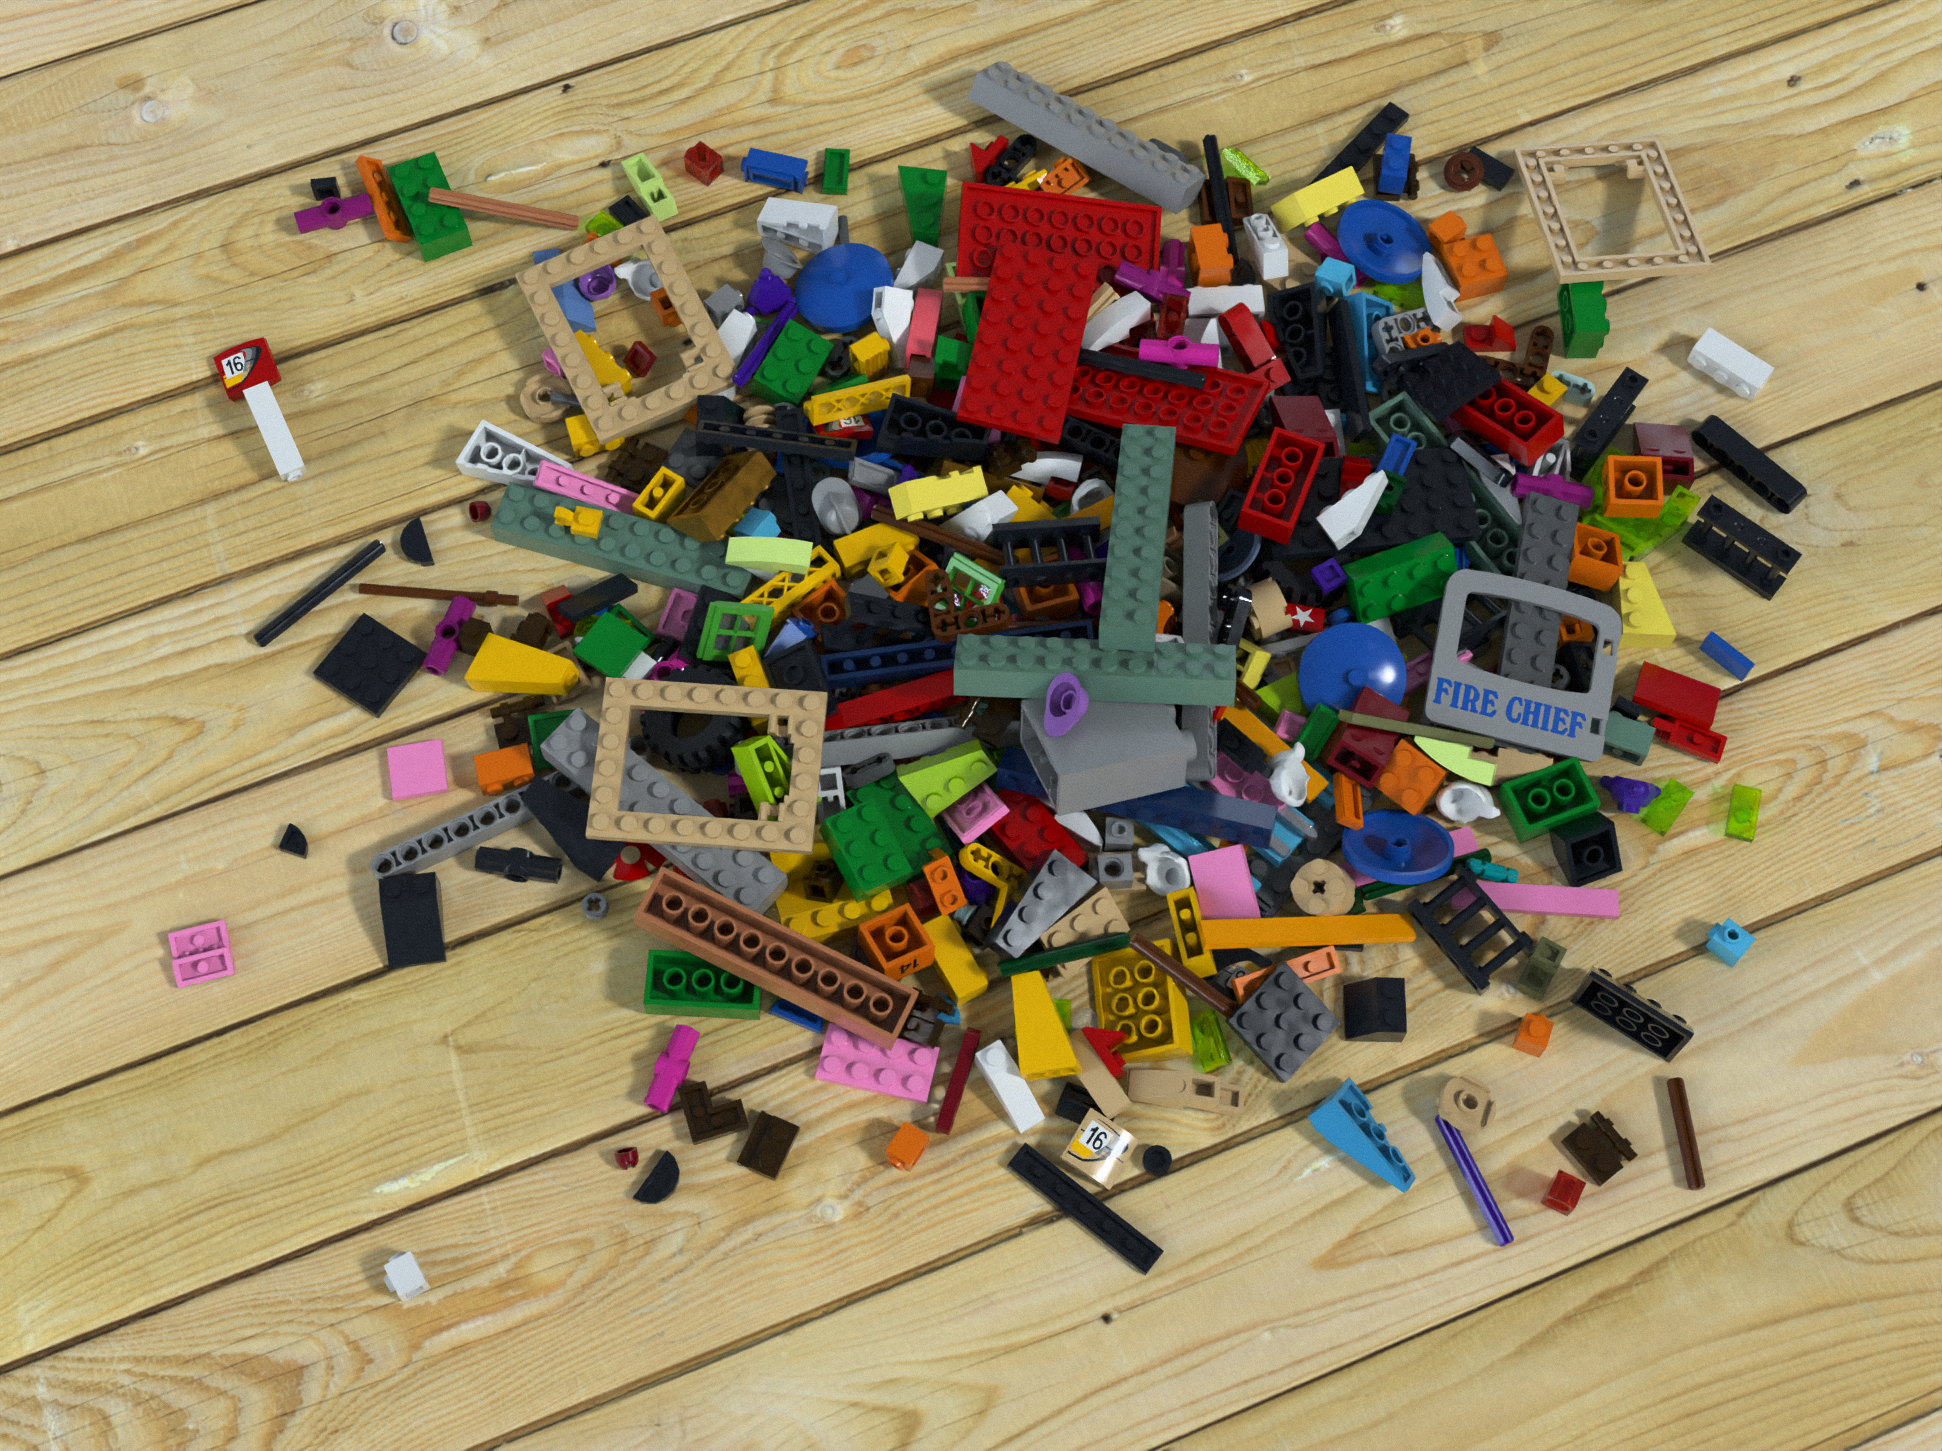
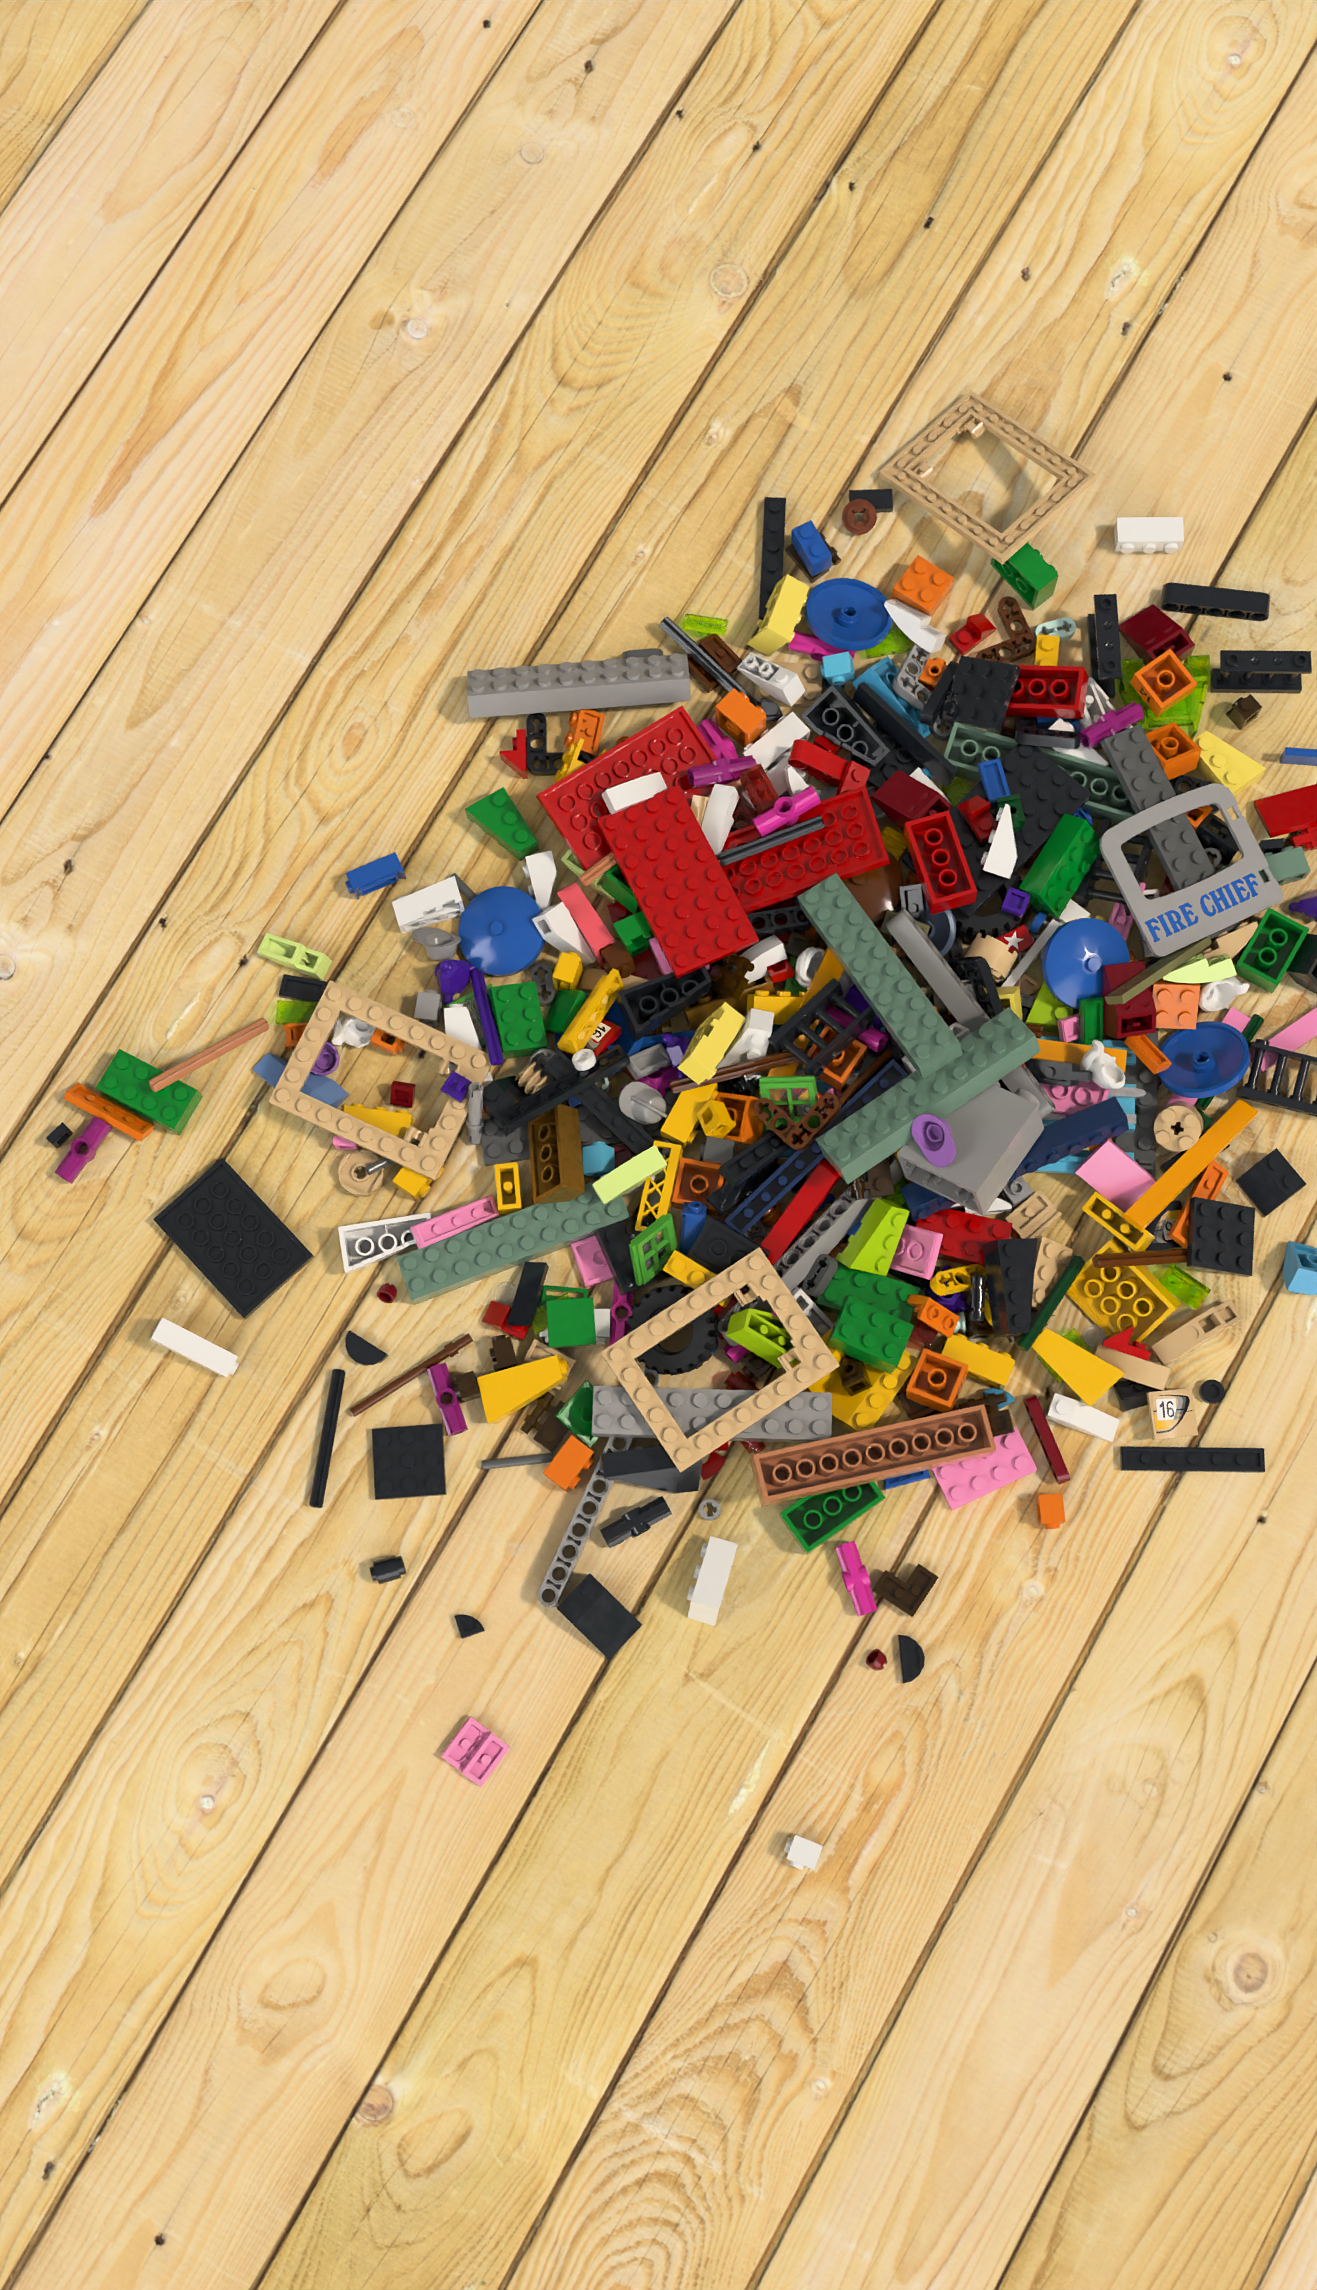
camera: 30 degrees left, 10 degrees up
(246, 367) = (126, 1315): red slope -> none
(269, 739) = (387, 1569): none -> black brick
(391, 373) = (233, 1238): none -> black plate
(417, 770) = (507, 1510): bright pink tile -> none
(460, 733) = (517, 1461): none -> dark grey bar
(538, 963) = (711, 1580): none -> white wedge
(583, 522) = (477, 1248): yellow plate -> none
(643, 468) = (474, 1171): dark brown plate -> none
(665, 649) = (604, 1295): black pin -> none
(679, 420) = (475, 1121): none -> light grey pin
(685, 375) = (456, 1086): none -> dark purple tile
(710, 168) = (325, 915): clear red brick -> none
(768, 1145) = (959, 1579): dark brown plate -> none
(814, 429) = (584, 1059): none -> white tile
(836, 171) = (417, 843): green tile -> none
(997, 896) = (977, 1298): none -> black axle
(1052, 239) = (633, 792): none -> white slope
(1121, 863) = (1042, 1213): light grey brick -> none
(1164, 869) = (1064, 1191): white hair -> none
(1446, 230) = (884, 573): orange brick -> none
(1492, 871) = (1271, 1027): teal axle -> none
(1696, 571) = (1244, 711): none -> dark brown brick

